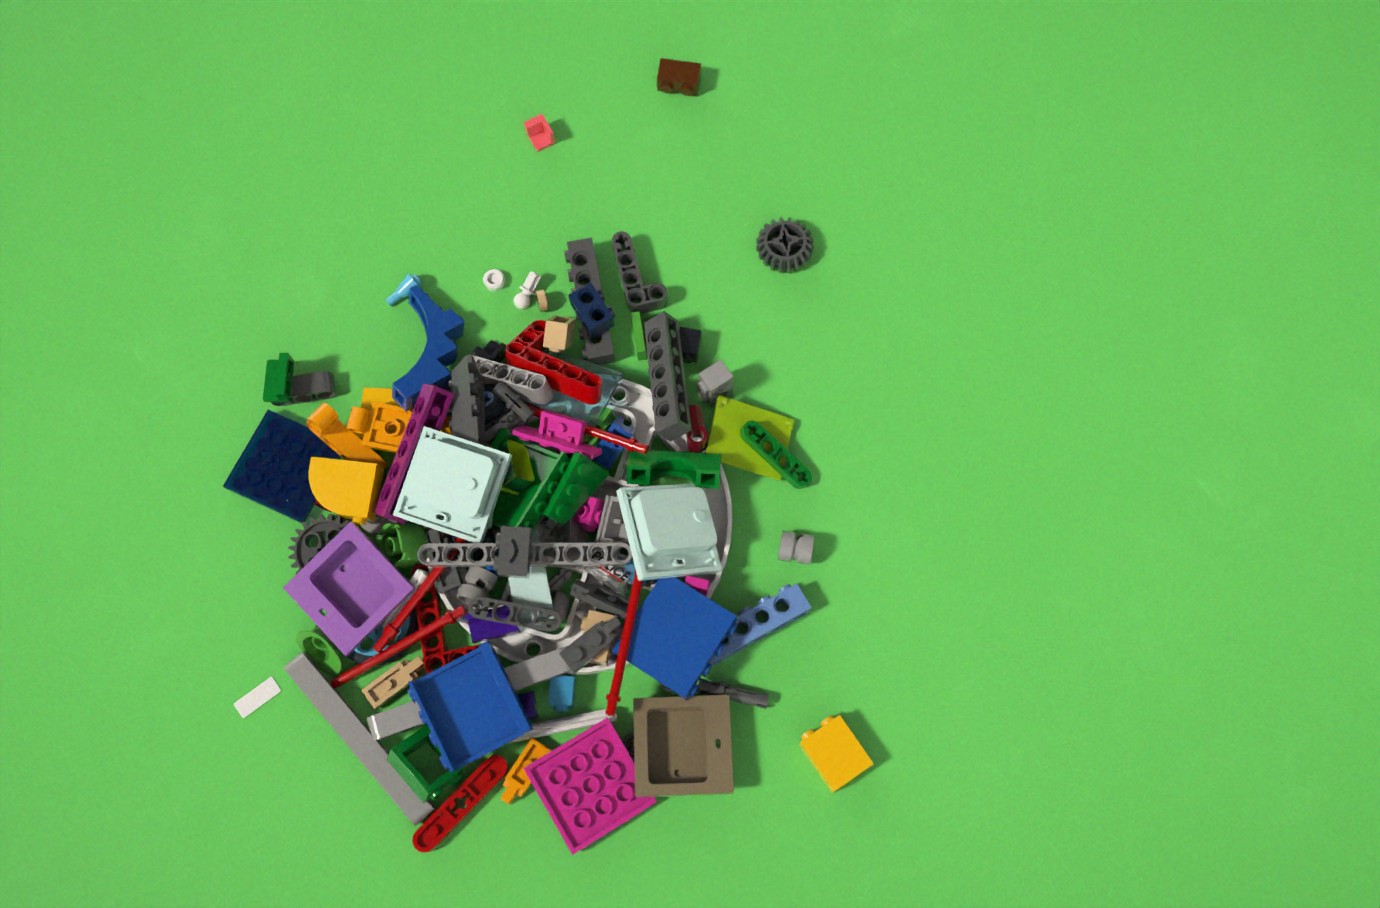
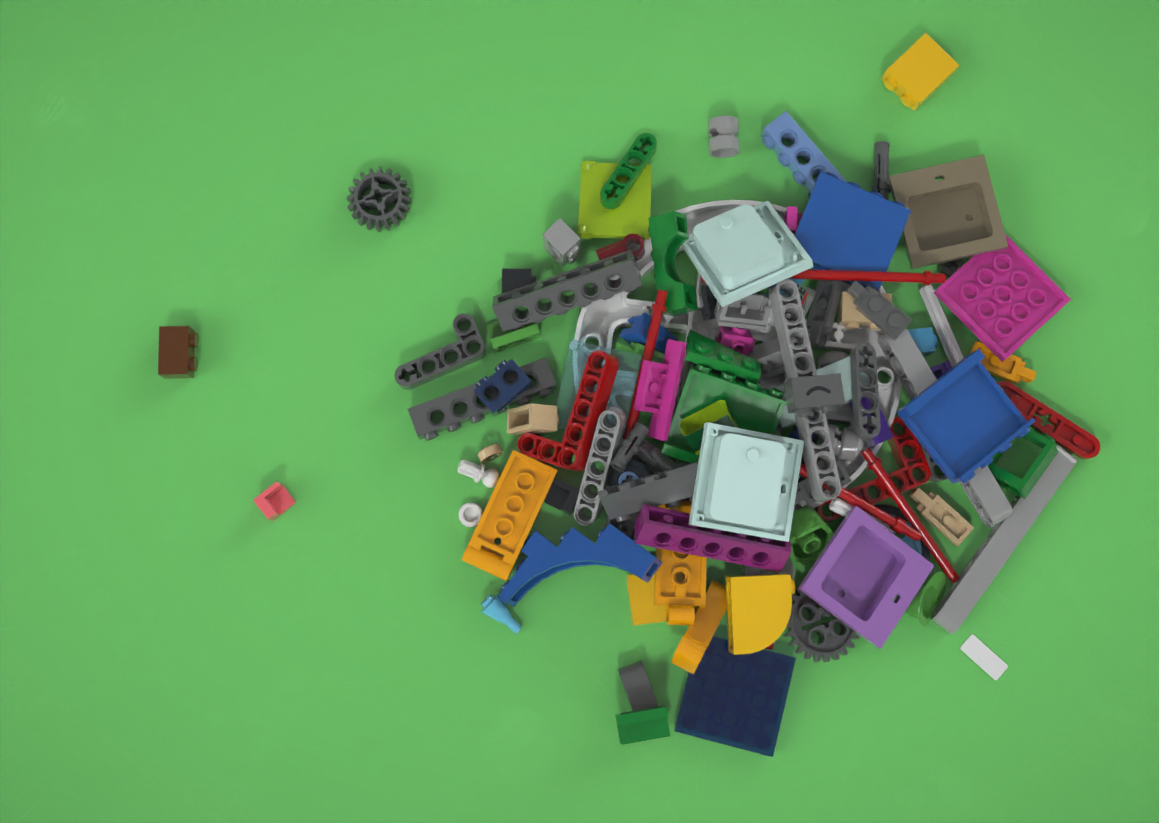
camera: 105 degrees left, 10 degrees up
(482, 304) = (509, 515): none -> light orange hinge

